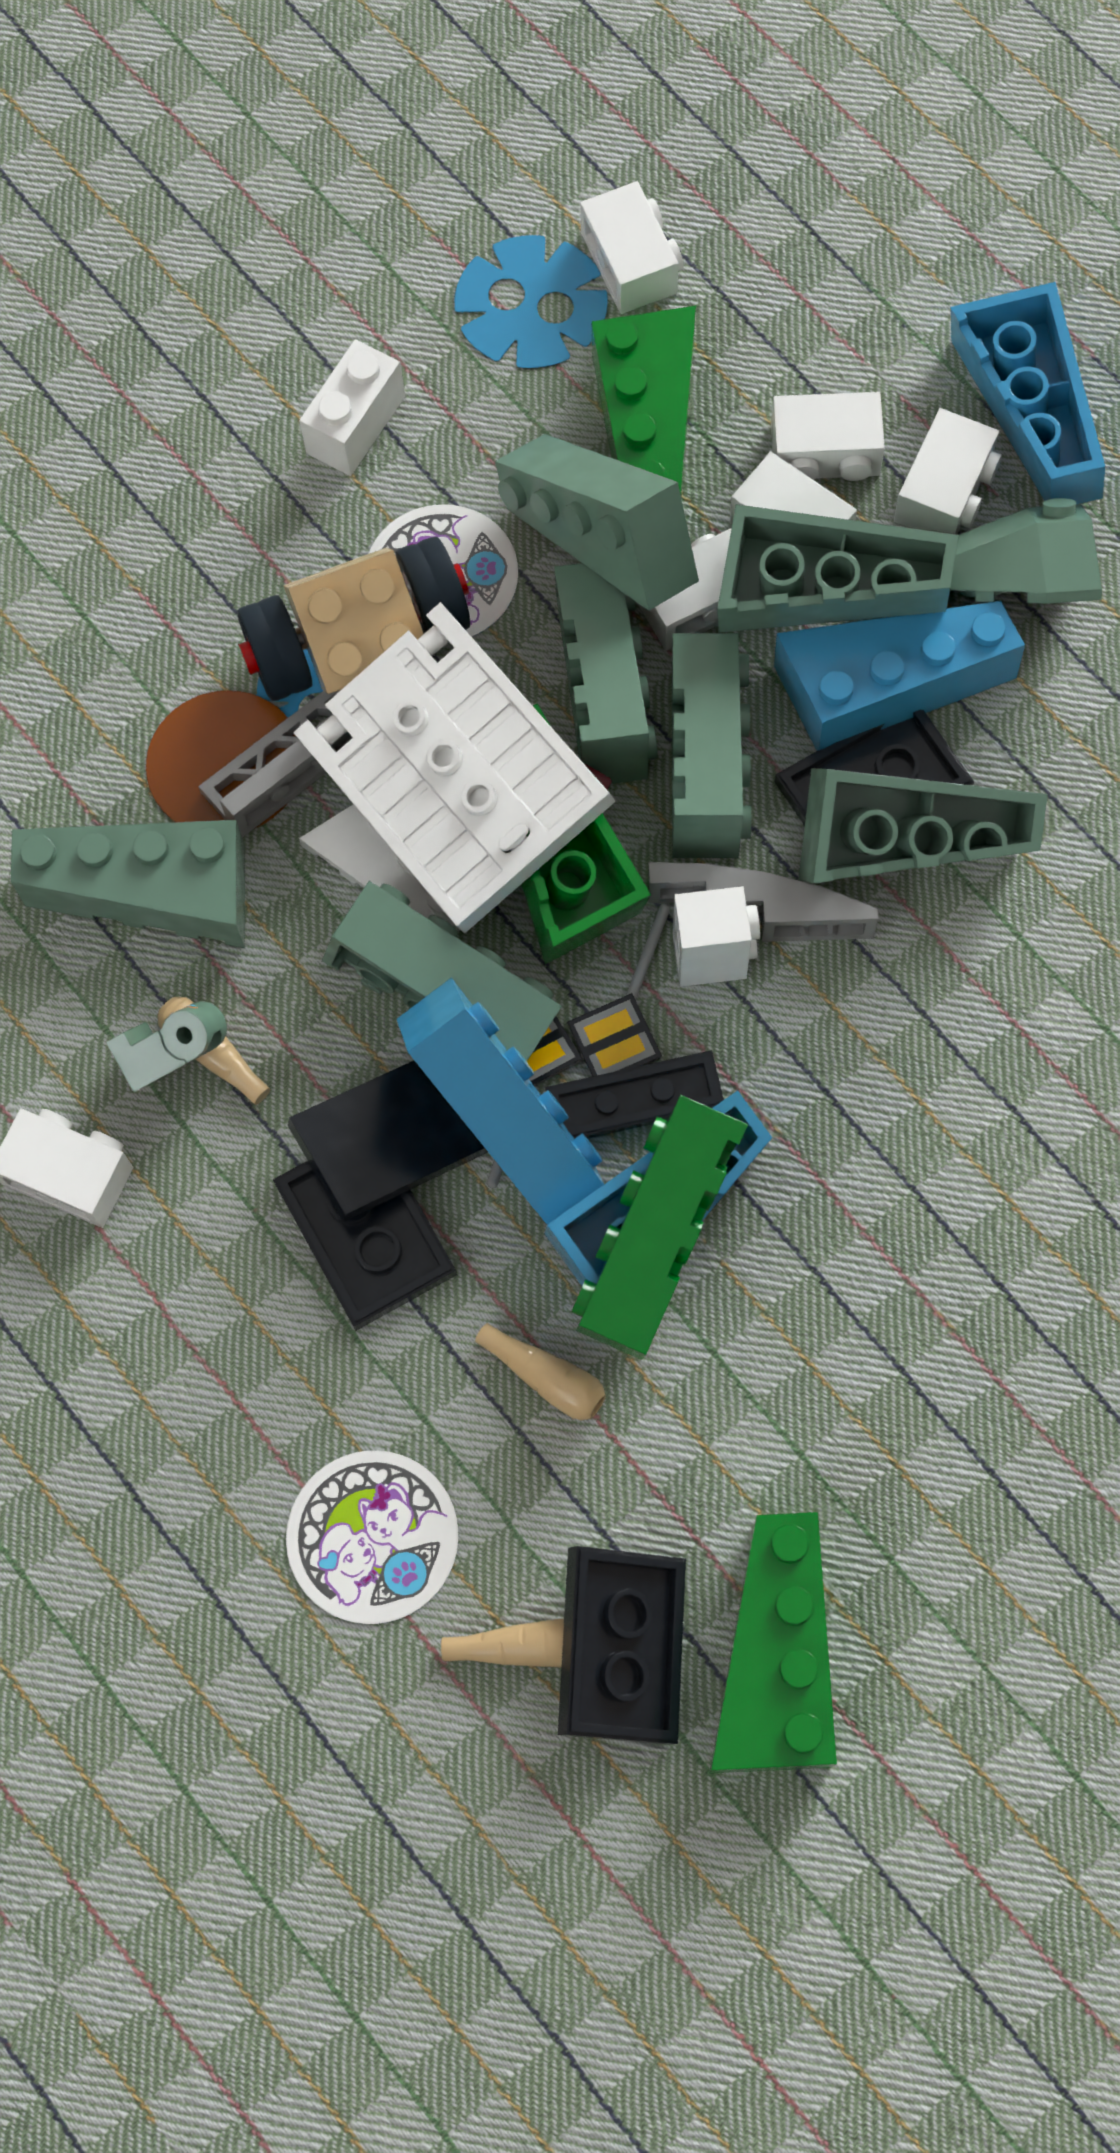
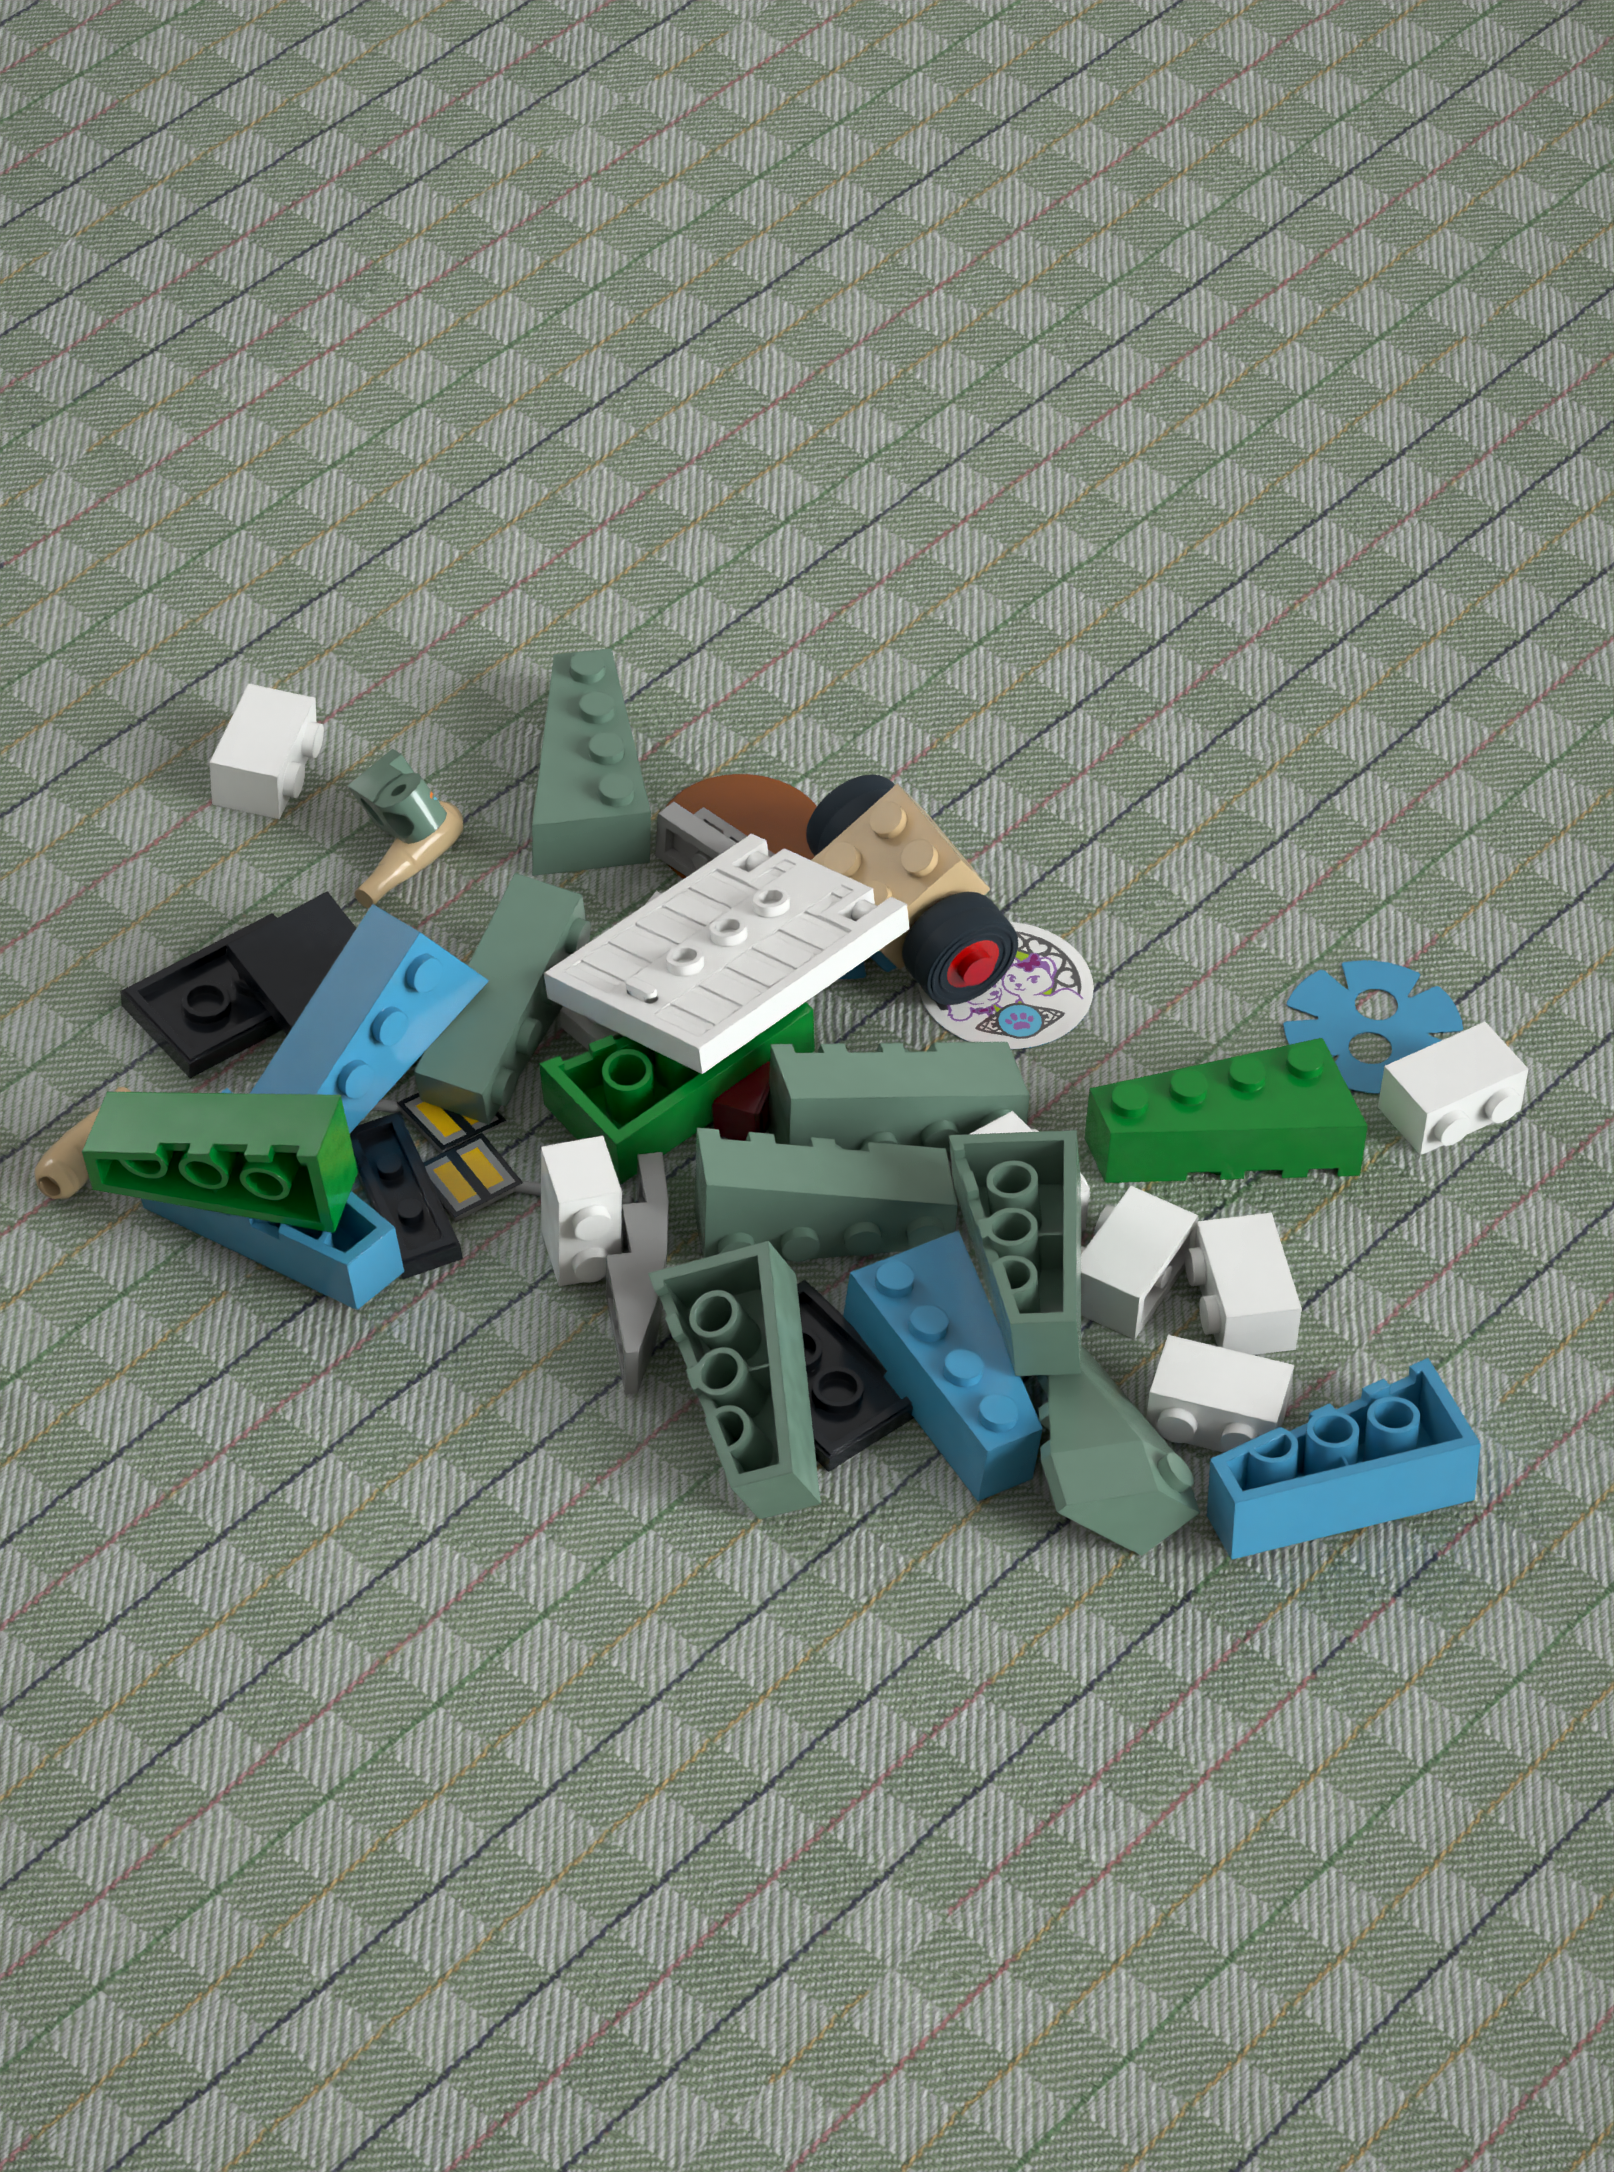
camera: 75 degrees right, 25 degrees down
(352, 407) = (1178, 871): white brick -> none
(604, 515) = (1058, 1051): sand green wedge -> none

